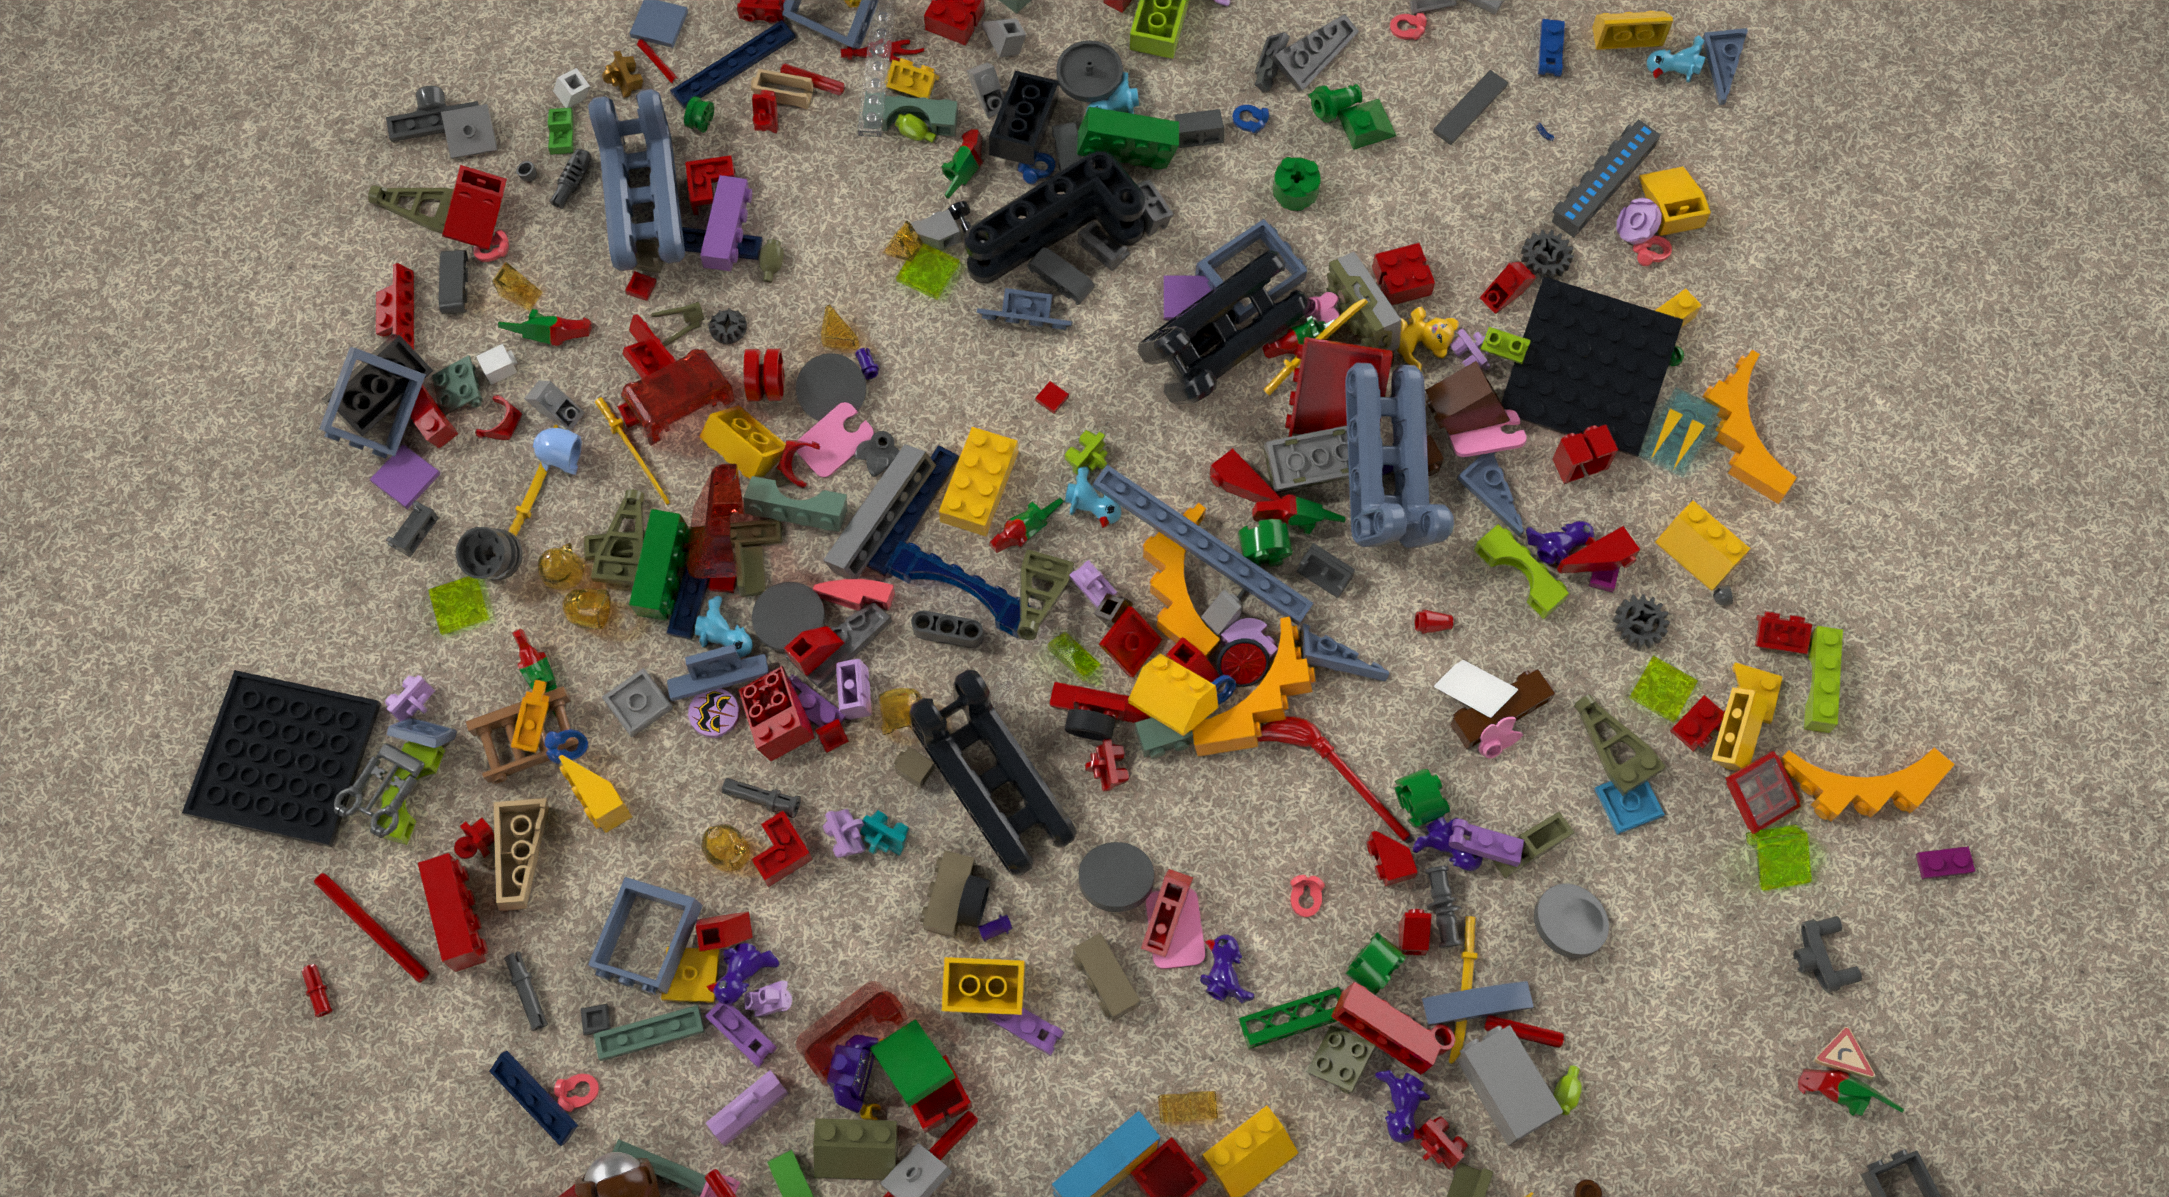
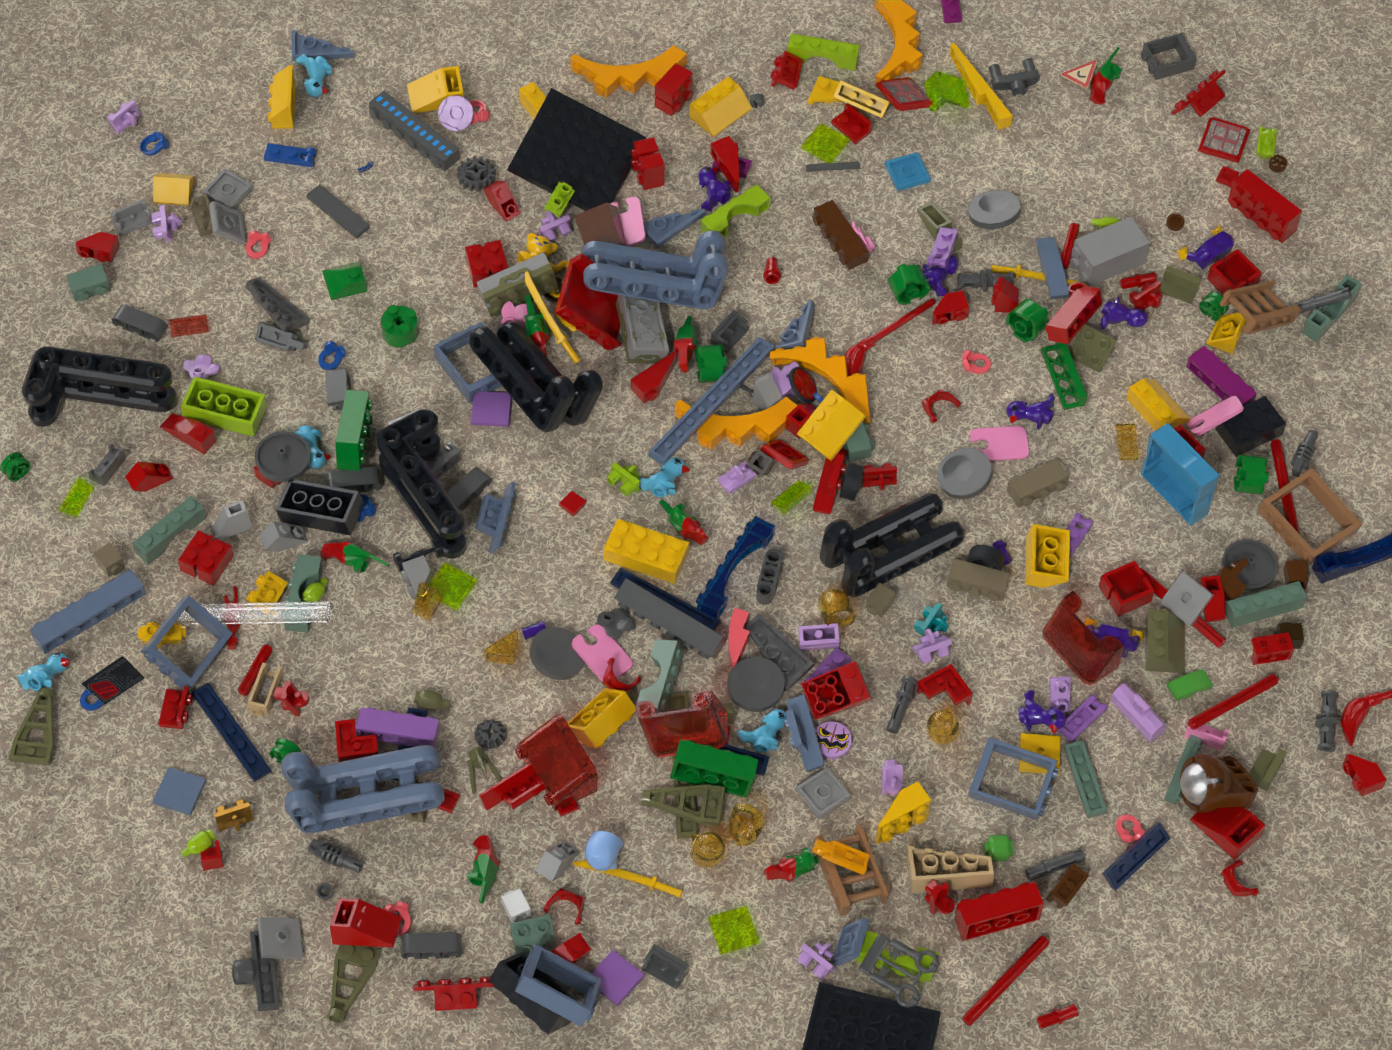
camera: 90 degrees left, 10 degrees down
(476, 555) = (706, 892): dark grey wheel -> none
(490, 1004) = (1067, 886): none -> reddish brown hinge
(515, 287) = (442, 895): clear yellow slope -> none
(551, 918) = (999, 847): none -> bright green head
(554, 739) = (863, 837): blue piece -> none
(560, 130) = (280, 868): bright green slope -> none
(571, 88) = (247, 853): white brick -> none
(573, 58) = (212, 857): none -> red panel
(591, 45) = (199, 843): none -> lime plant
(595, 1019) = (1075, 818): dark grey tile -> none
(617, 426) = (579, 814): yellow sword -> none
(646, 779) = (891, 777): none -> lavender hips
(656, 60) = (219, 792): red piece -> none
(723, 930) = (1009, 728): red slope -> none
(763, 375) = (546, 696): red wheel -> none
(812, 648) = (788, 660): red slope -> none
(832, 735) = (854, 654): red tile -> none
(912, 1062) = (1109, 594): green tile -> none
(1044, 568) = (722, 505): olive plate -> none
(1167, 912) = (989, 441): red slope -> none
(1236, 832) = (939, 395): none -> red helmet
(1328, 102) = (327, 298): green piece -> none
(1470, 1131) = (1137, 280): none -> red axle
(1476, 688) = (825, 247): white sticker -> none
(1624, 697) = (832, 166): none -> dark grey bar
(1633, 771) = (885, 160): olive plate -> none
(1636, 630) = (776, 148): dark grey gear -> none
(1679, 432) = (630, 109): clear light blue slope -> none
(1717, 480) = (674, 89): none -> red piece
(1789, 902) = (980, 89): none -> yellow slope

